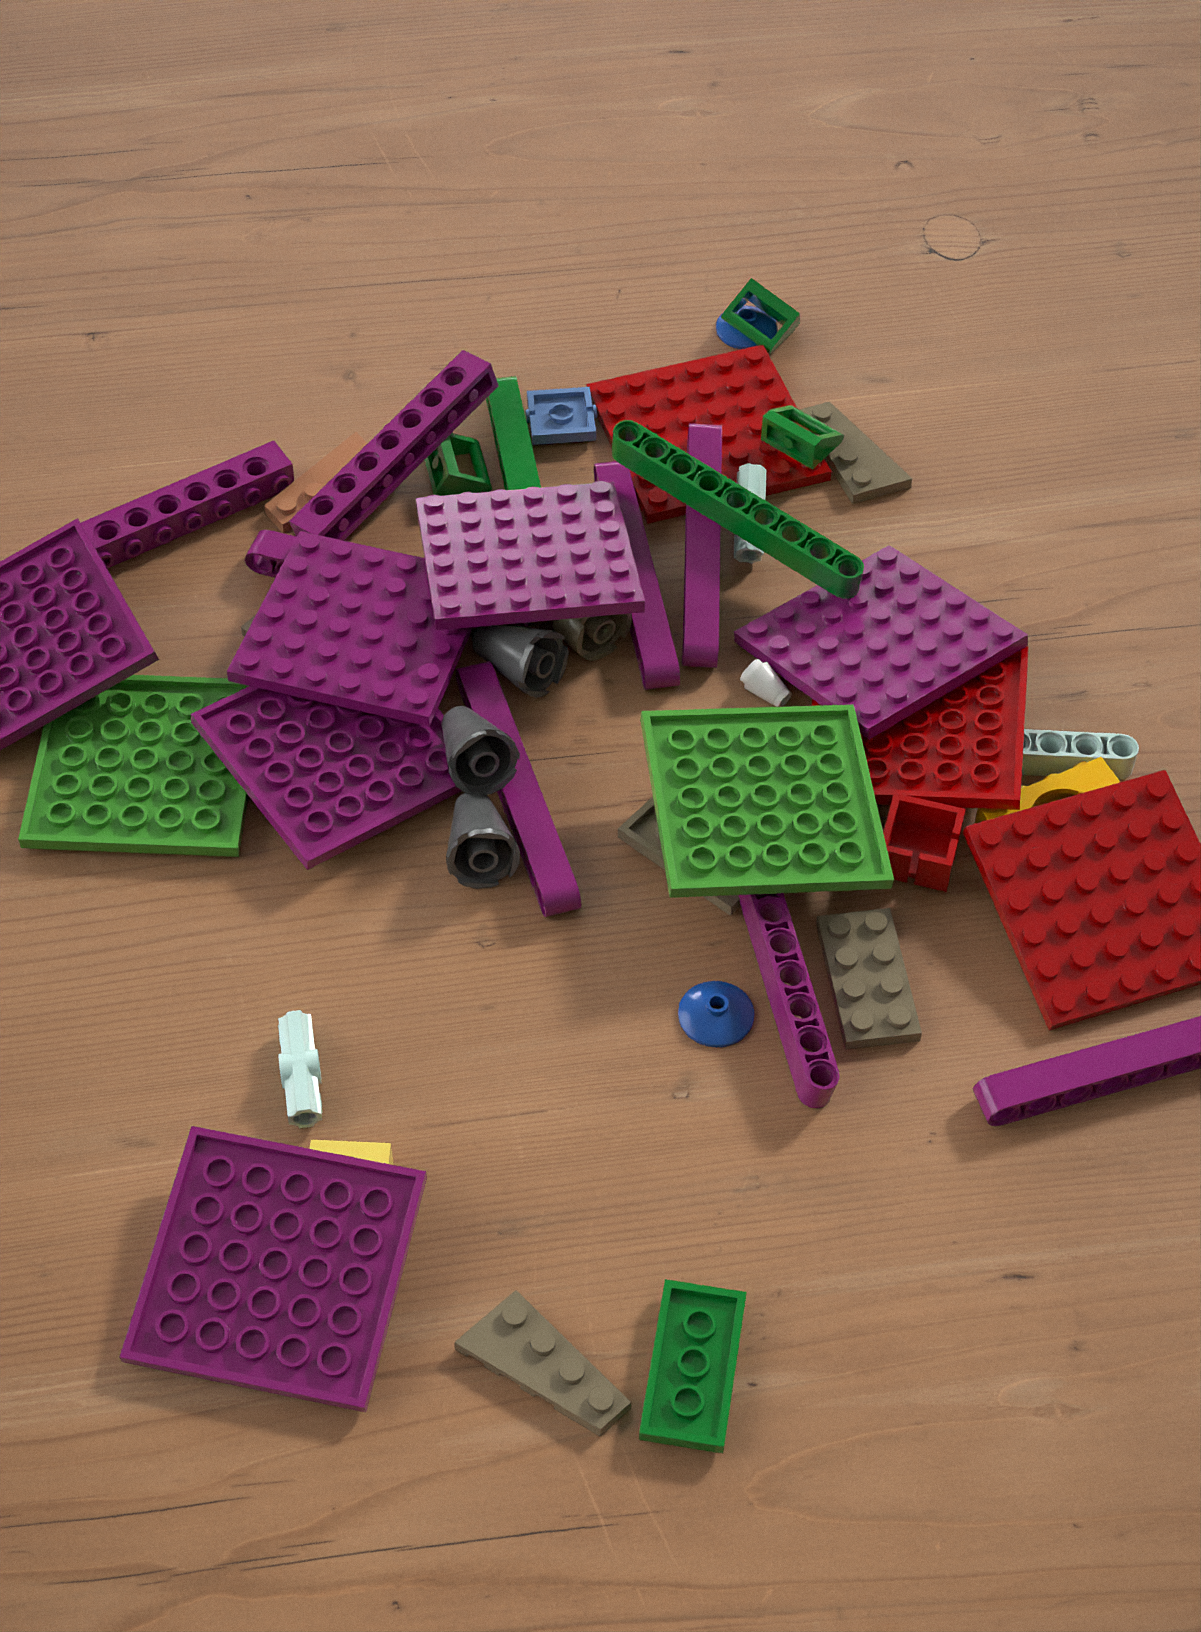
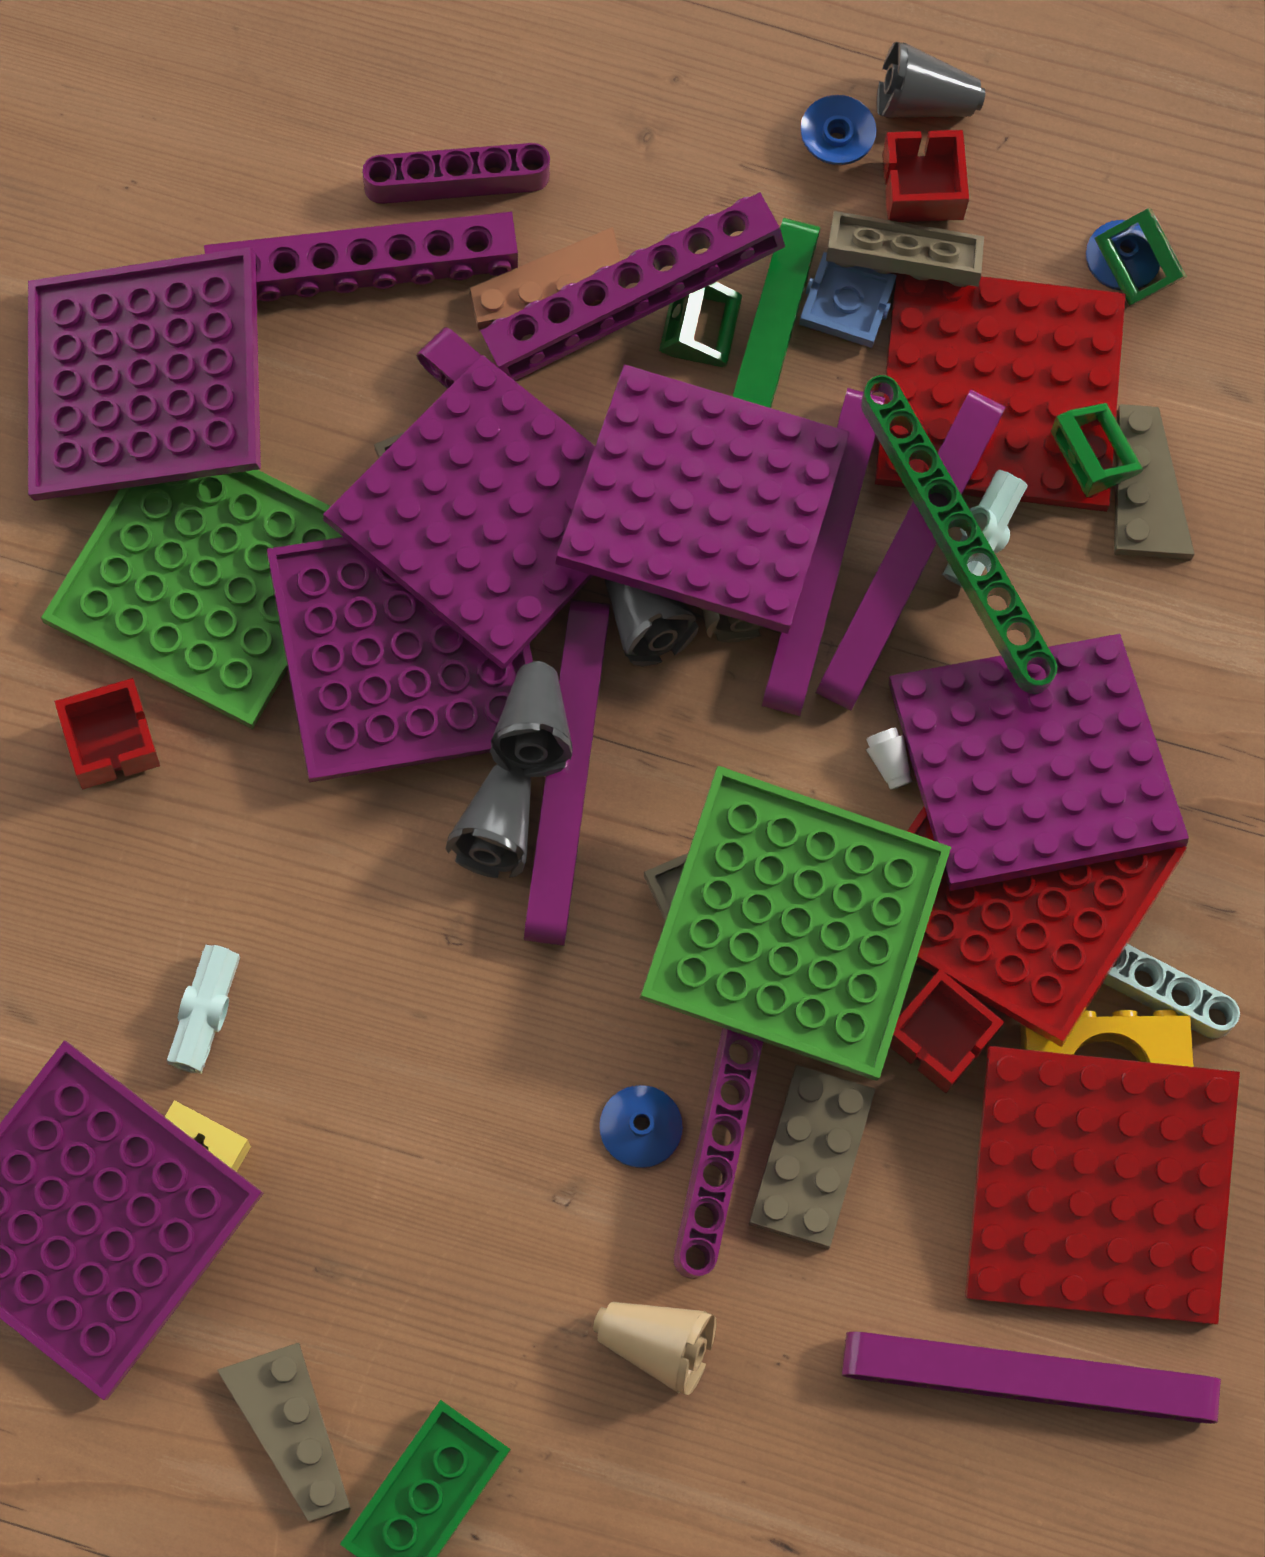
camera: 20 degrees right, 20 degrees up
(112, 897) = (107, 733): none -> red piece
(215, 438) = (442, 185): none -> magenta beam
(494, 318) = (842, 116): none -> blue dish
(543, 270) = (925, 86): none -> dark grey cone
(578, 369) = (905, 249): none -> dark tan plate
(587, 322) = (927, 185): none -> red piece
(823, 1153) = (659, 1340): none -> tan cone

